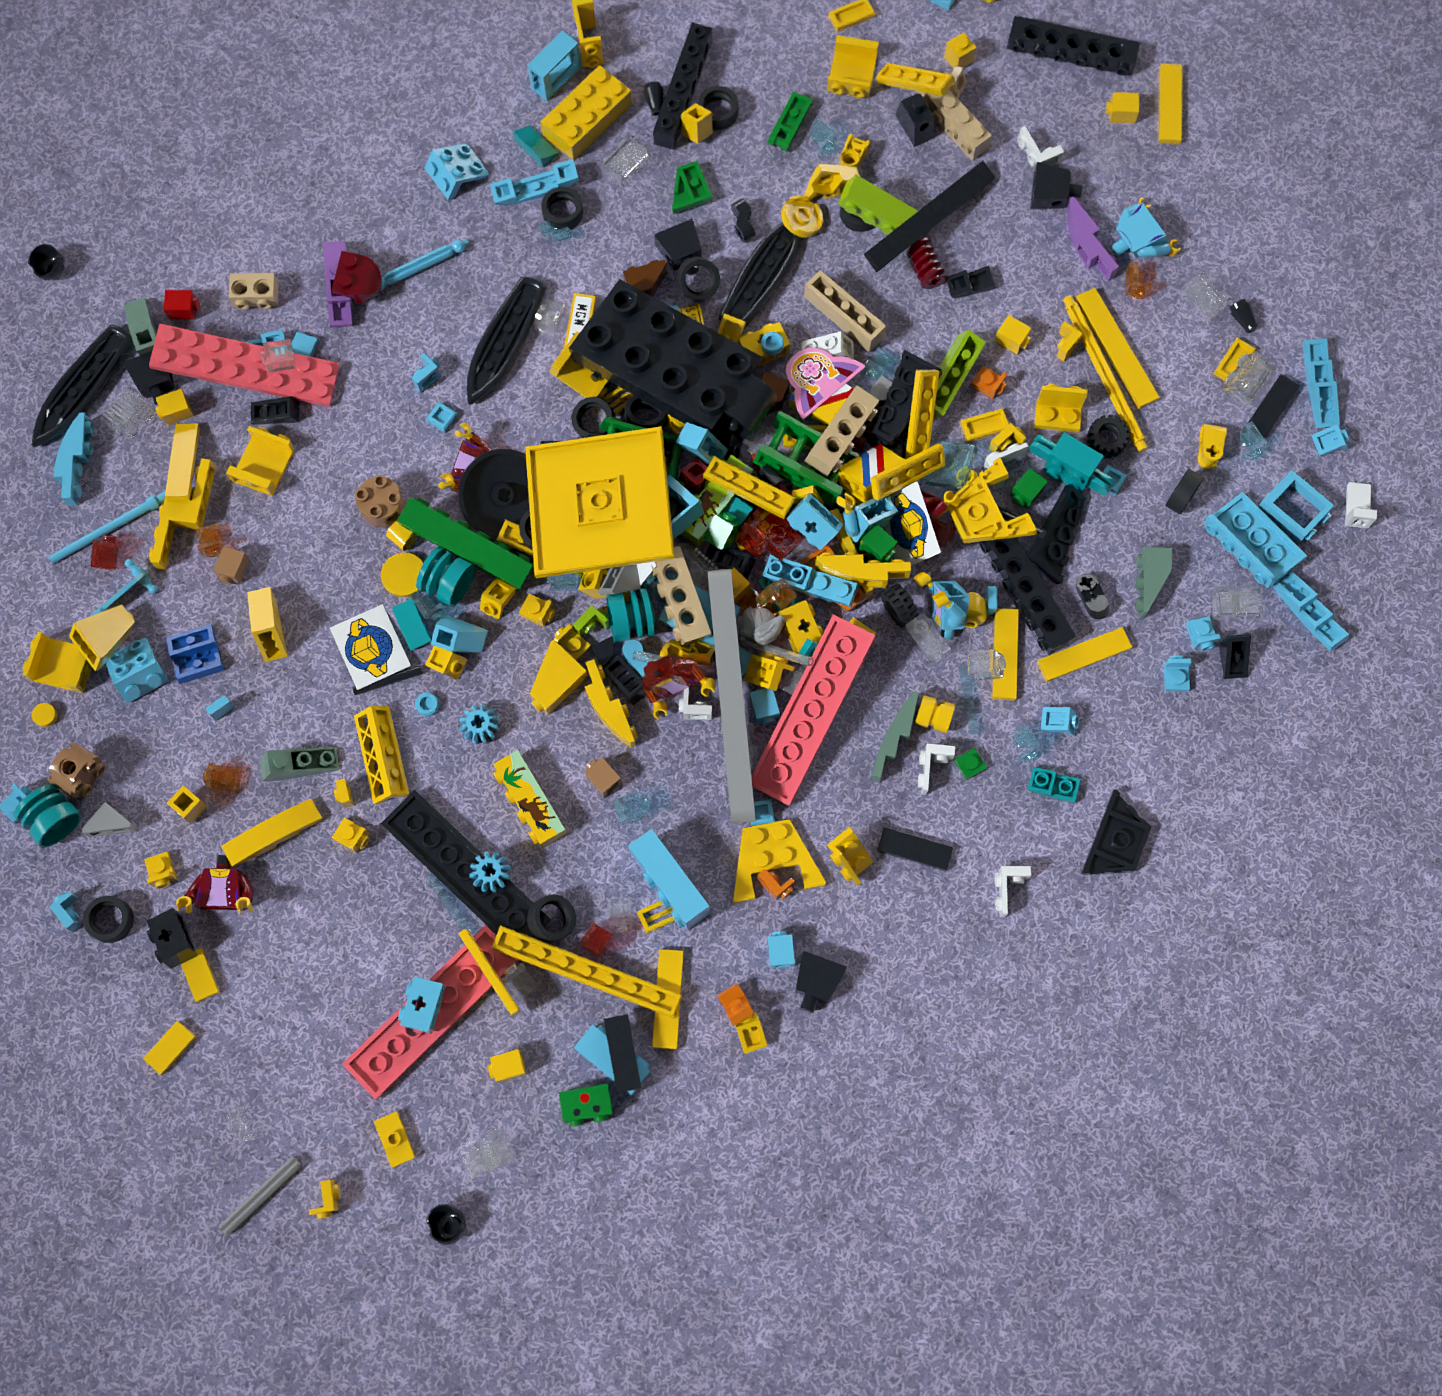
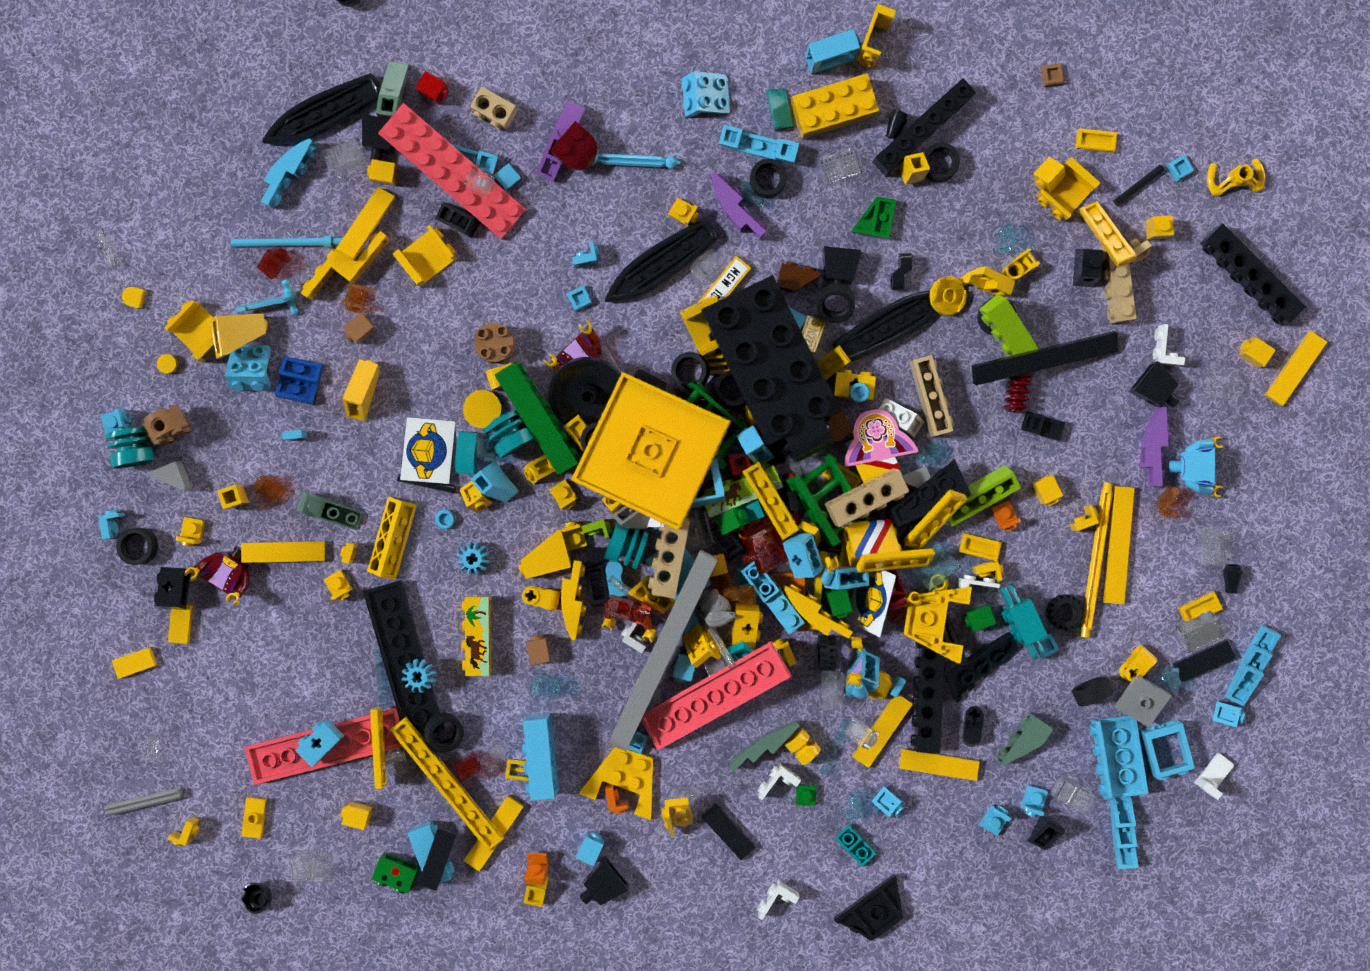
camera: 30 degrees right, 15 degrees up
(498, 282) = (683, 212): none -> yellow bracket
(539, 250) = (729, 201): none -> medium lavender slope
(576, 721) = (545, 597): none -> yellow piece
(790, 121) = (989, 207): green plate -> none
(827, 61) = (1049, 175): none -> yellow brick
(916, 30) = (1138, 185): none -> black bar
(1059, 408) = (1041, 572): yellow bracket -> none
(1239, 470) = (1142, 700): none -> light grey plate

